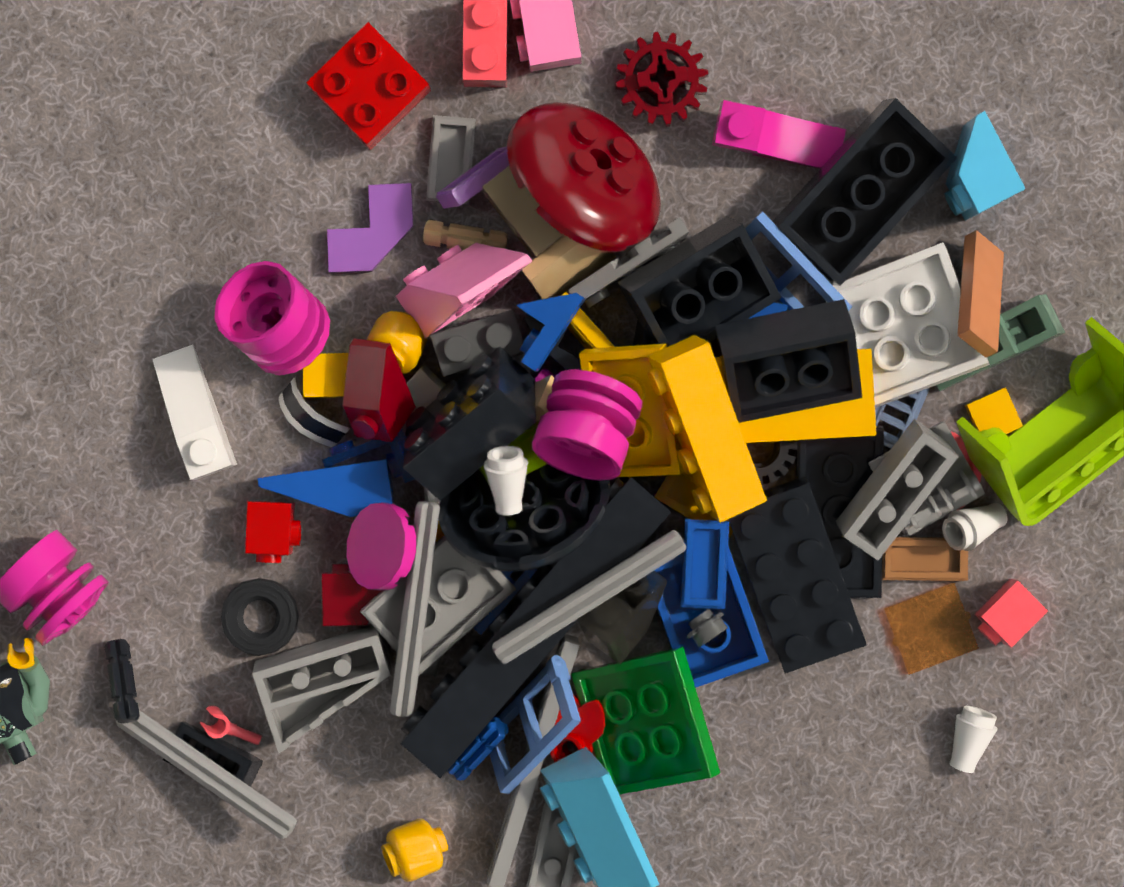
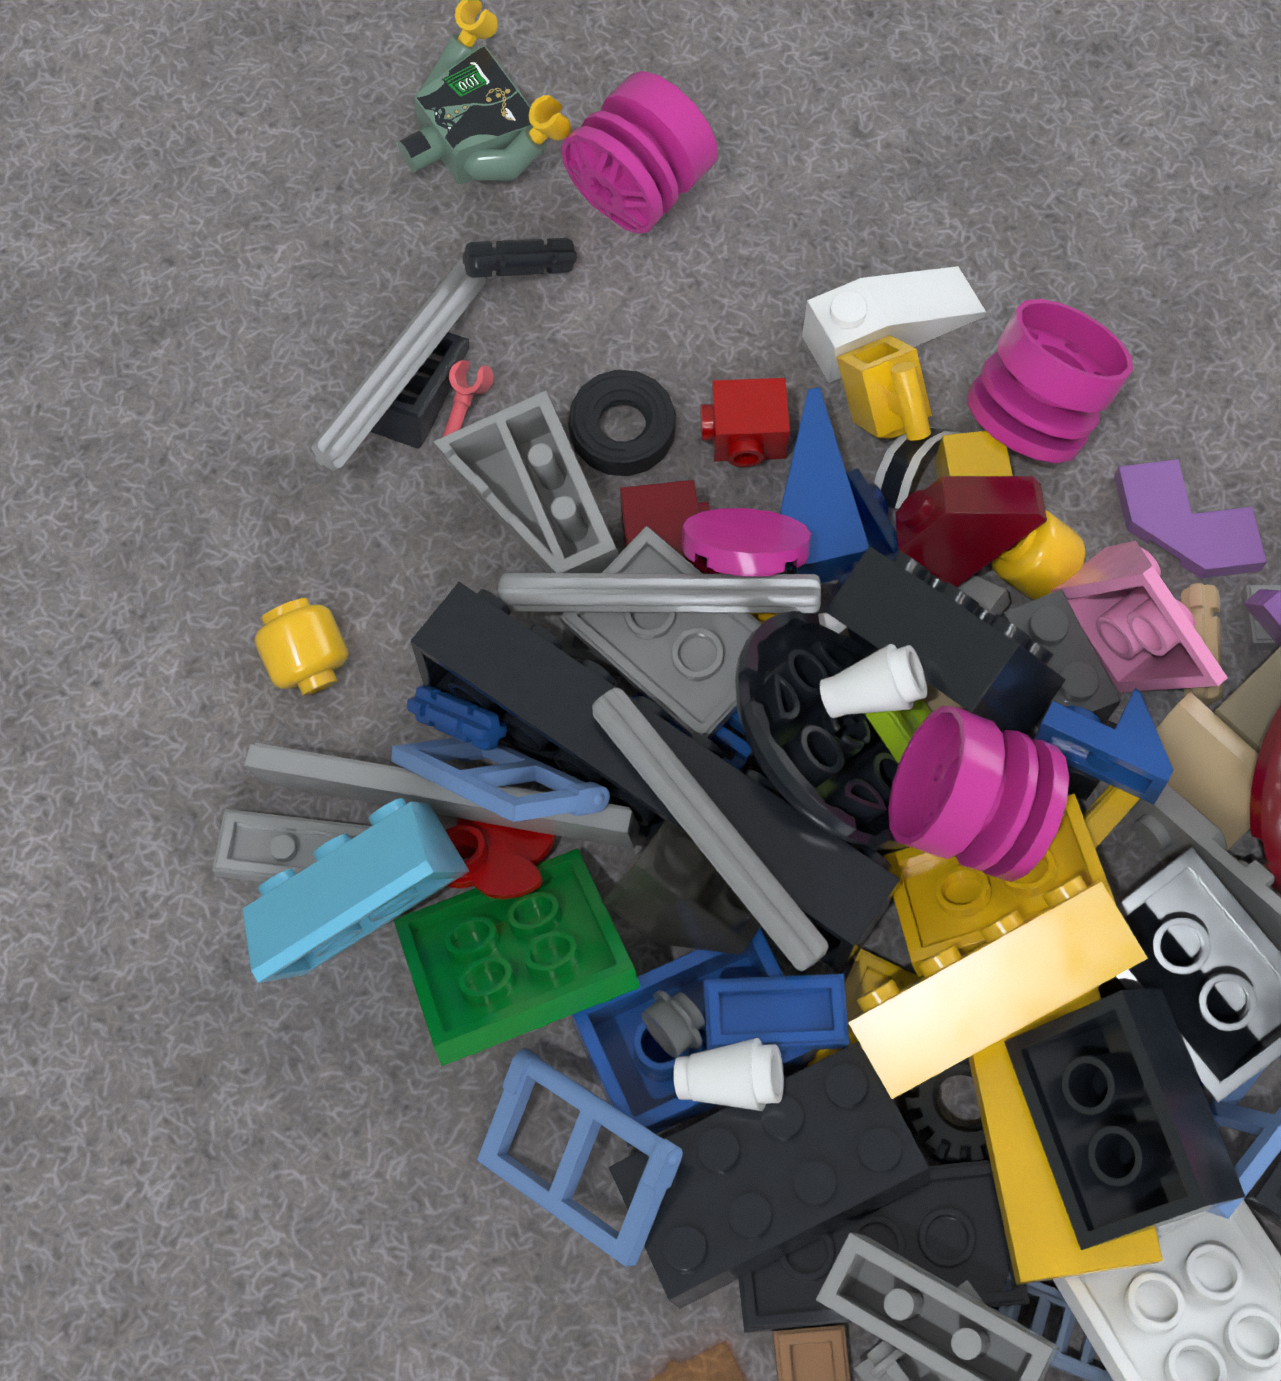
camera: 80 degrees right, 20 degrees down
(260, 429) = (886, 389): none -> yellow brick
(743, 595) = (732, 1075): none -> white cone
(796, 705) = (557, 1198): none -> medium blue window

